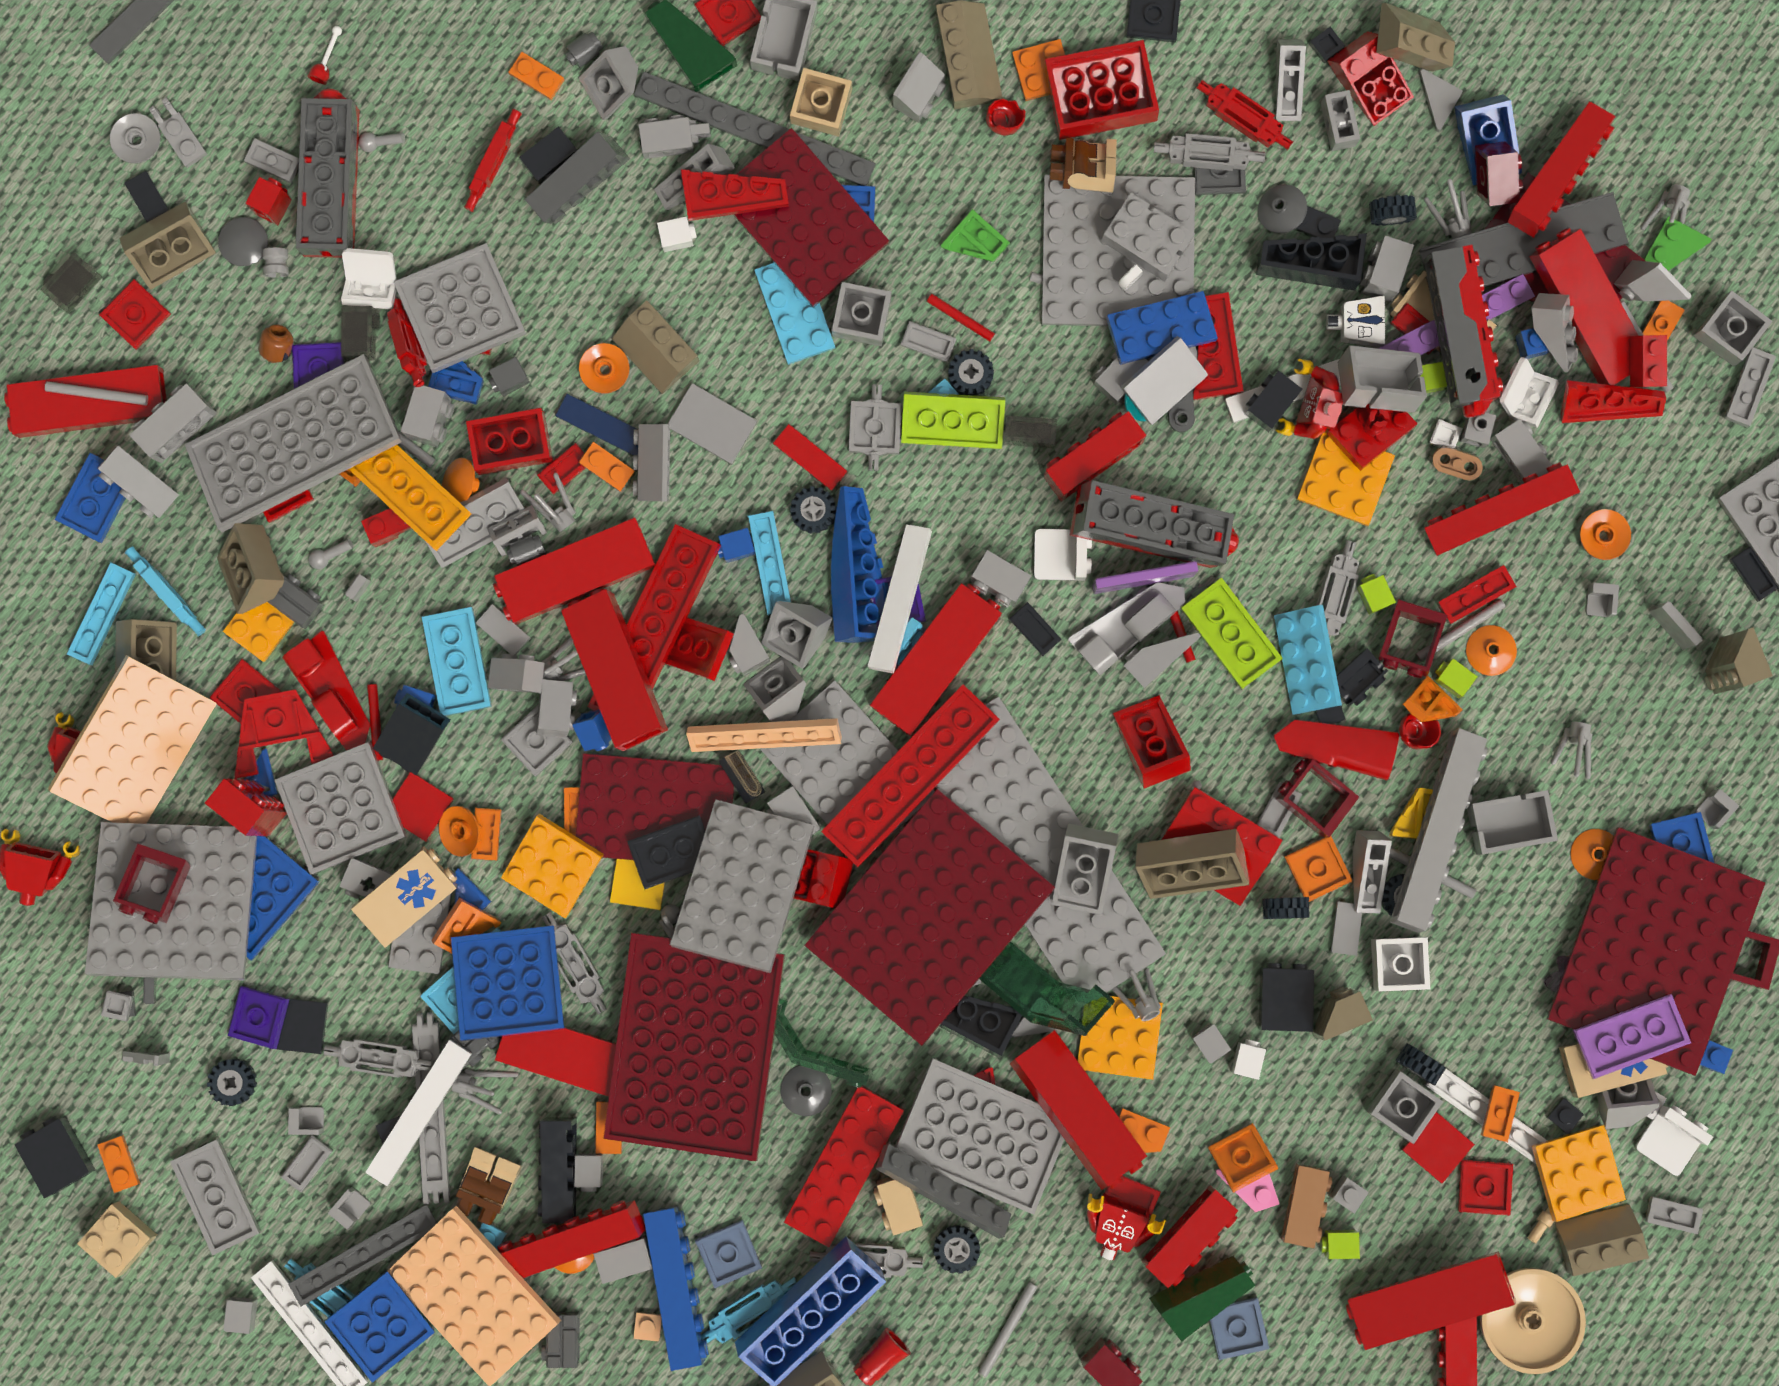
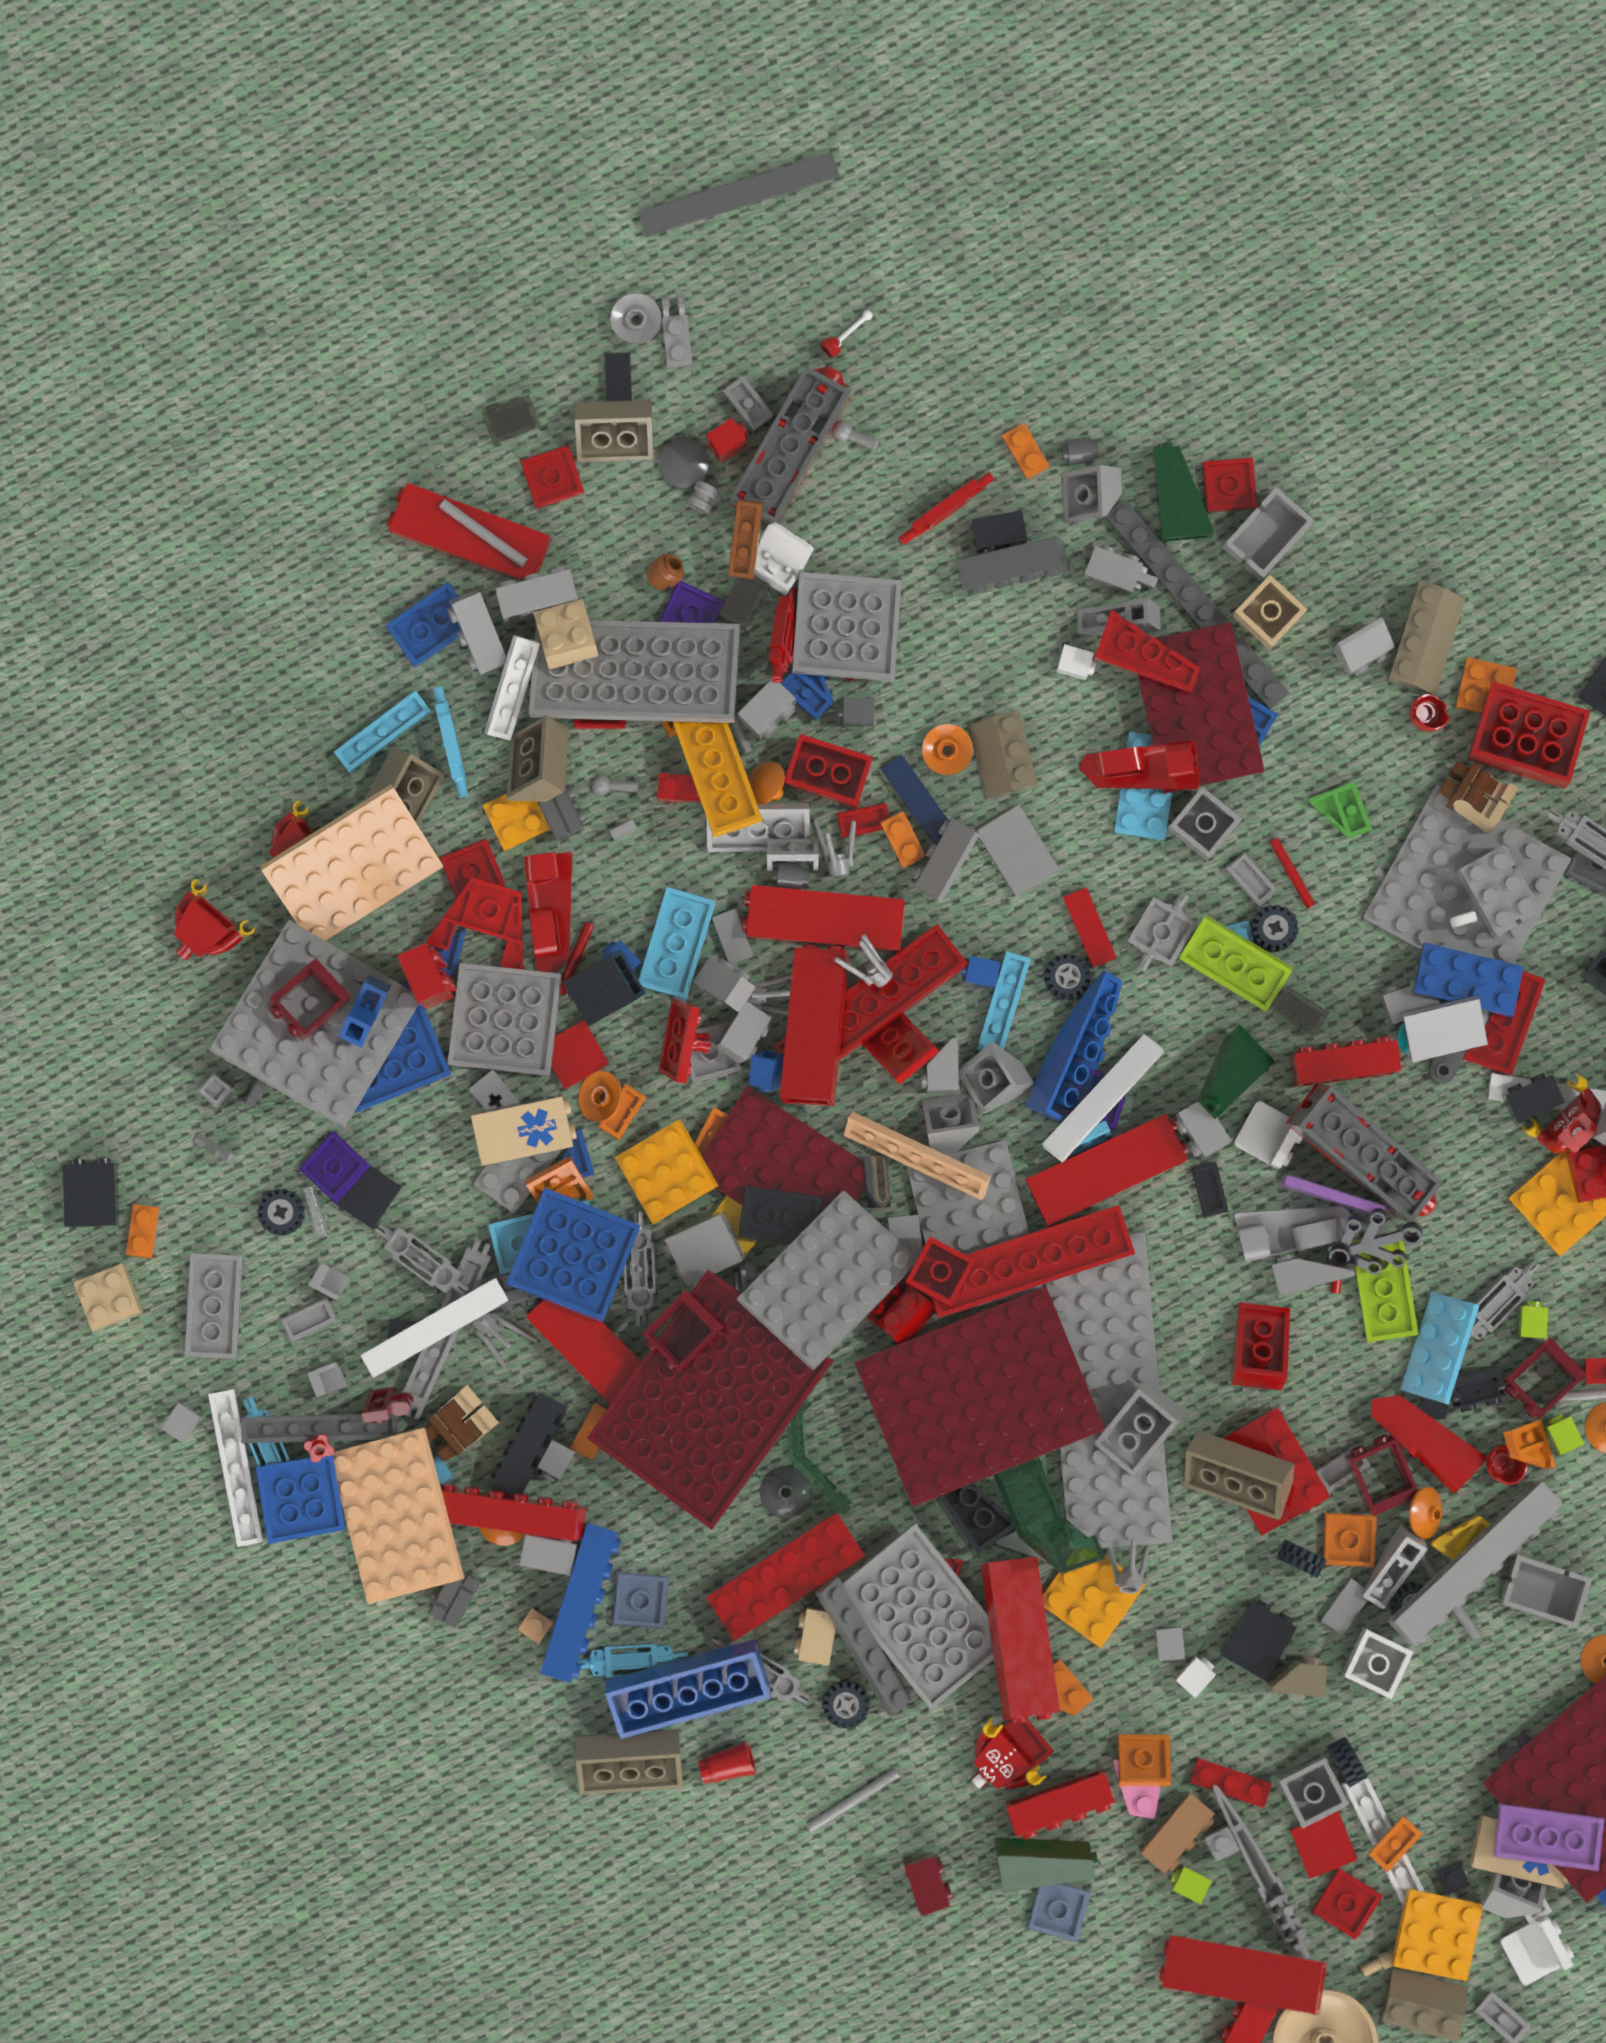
camera: 25 degrees right, 0 degrees up
(193, 515) = (512, 687): none -> white plate
(208, 869) = (364, 1011): none -> blue brick
(214, 442) = (565, 634): none -> tan brick
(262, 1066) = (314, 1212): none -> clear pin
(328, 276) = (745, 539): none -> dark orange tile
(368, 1267) = (315, 1441): none -> plate
(409, 1201) = (383, 1402): none -> dark red hinge
(504, 743) = (682, 1040): none -> red plate
(618, 914) = (702, 1247): none -> light grey brick
(638, 971) = (701, 1311): none -> dark red window
(643, 591) = (877, 969): none -> light grey plant
(783, 292) = (1147, 767): none -> red panel
(836, 825) = (940, 1271): none -> red brick
(1000, 514) = (1233, 1071): none -> dark green slope
(1201, 601) = (1372, 1244): none -> plant
(1328, 1136) = (1231, 1782): none -> red plate
(1372, 810) = (1425, 1512): none -> orange dish
(1413, 1210) = (1270, 1888): none -> light grey piece

